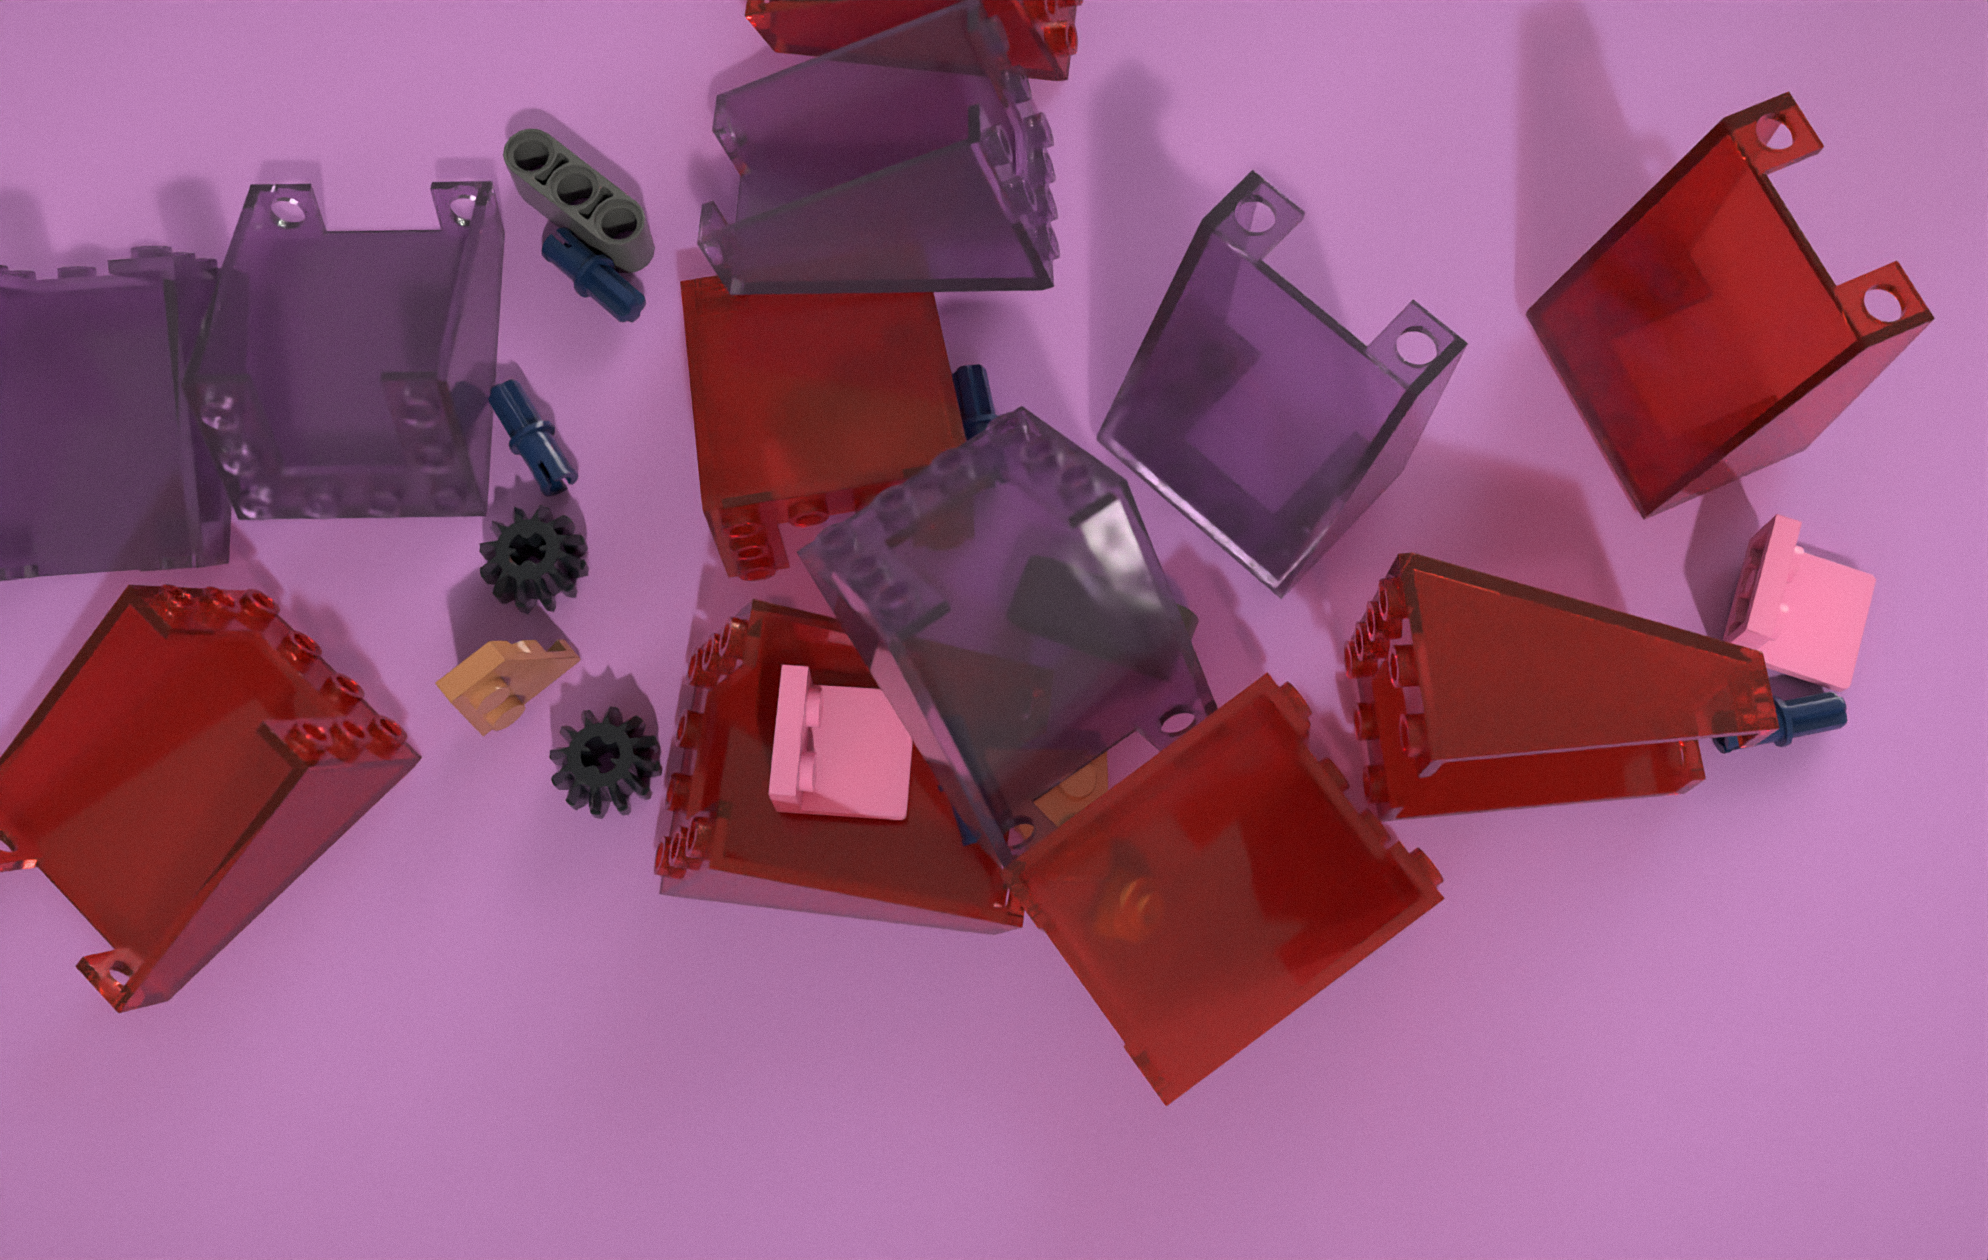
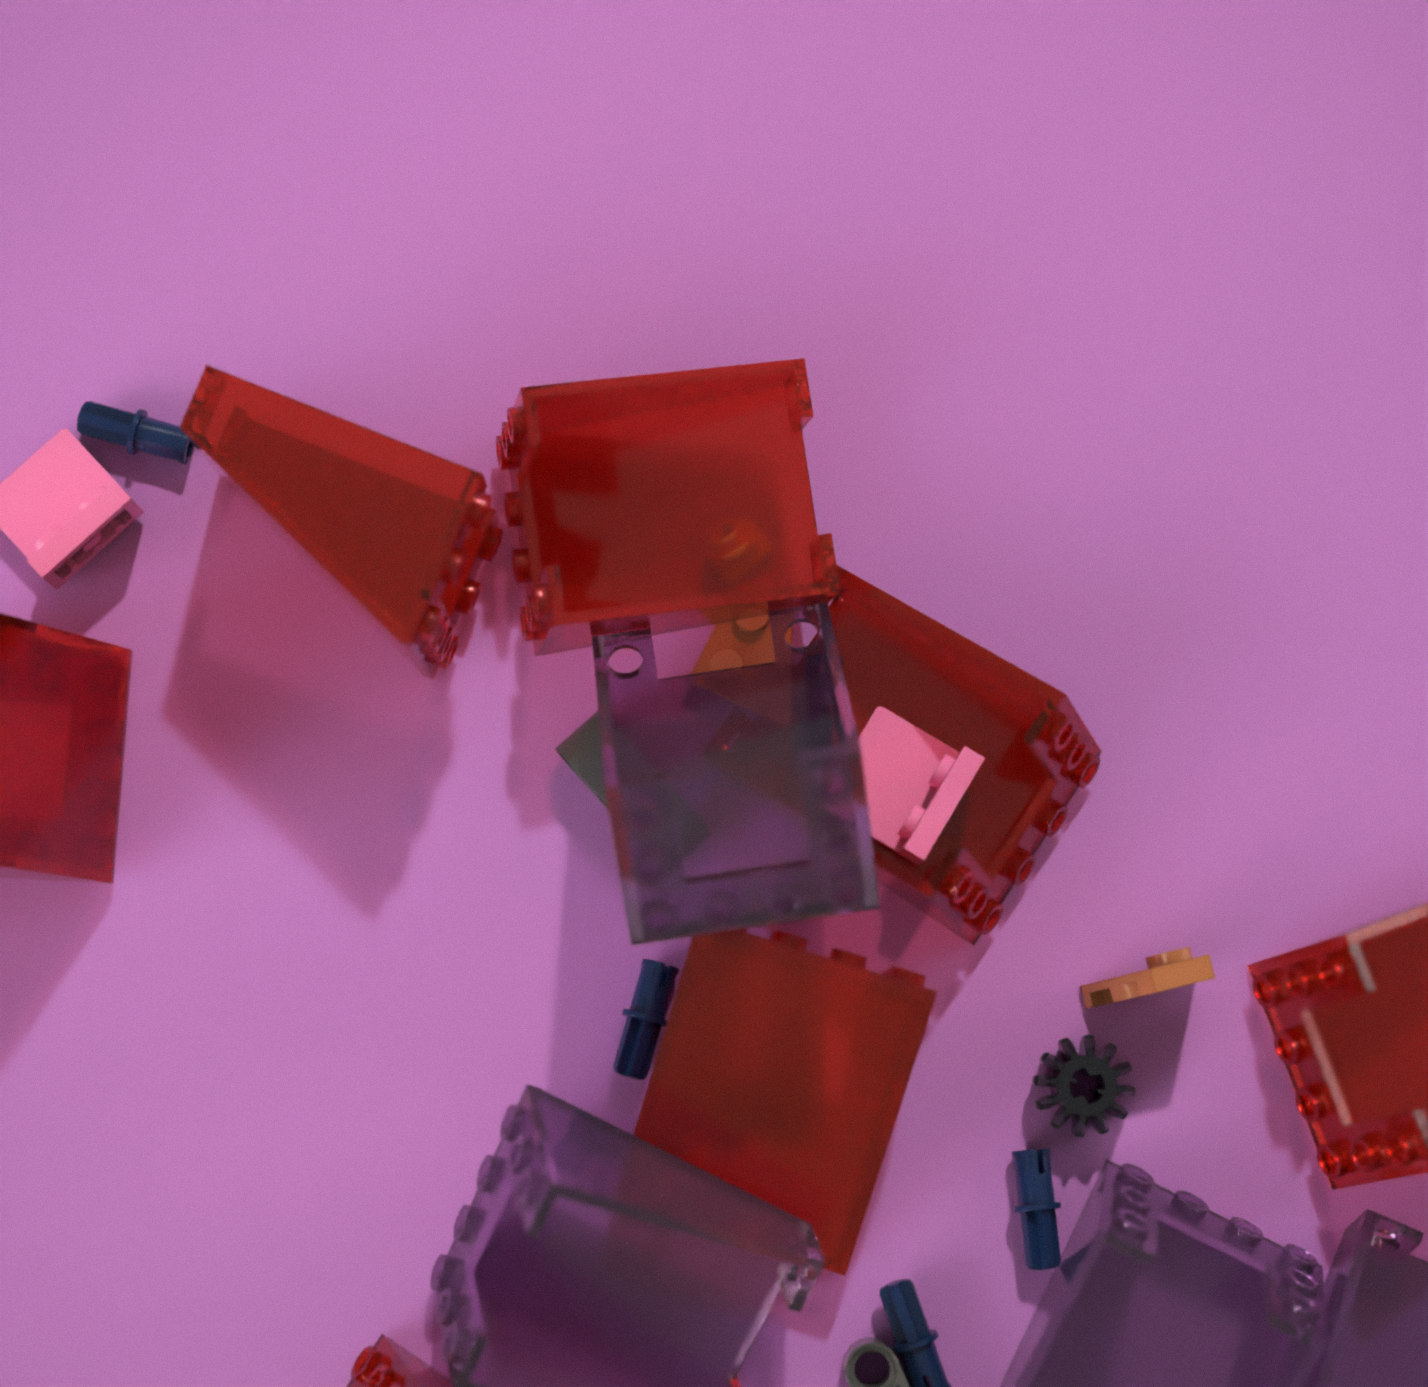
camera: 155 degrees left, 10 degrees up
(580, 762) = (1113, 860): black gear -> none
(1263, 405) = (435, 860): clear purple windscreen -> none

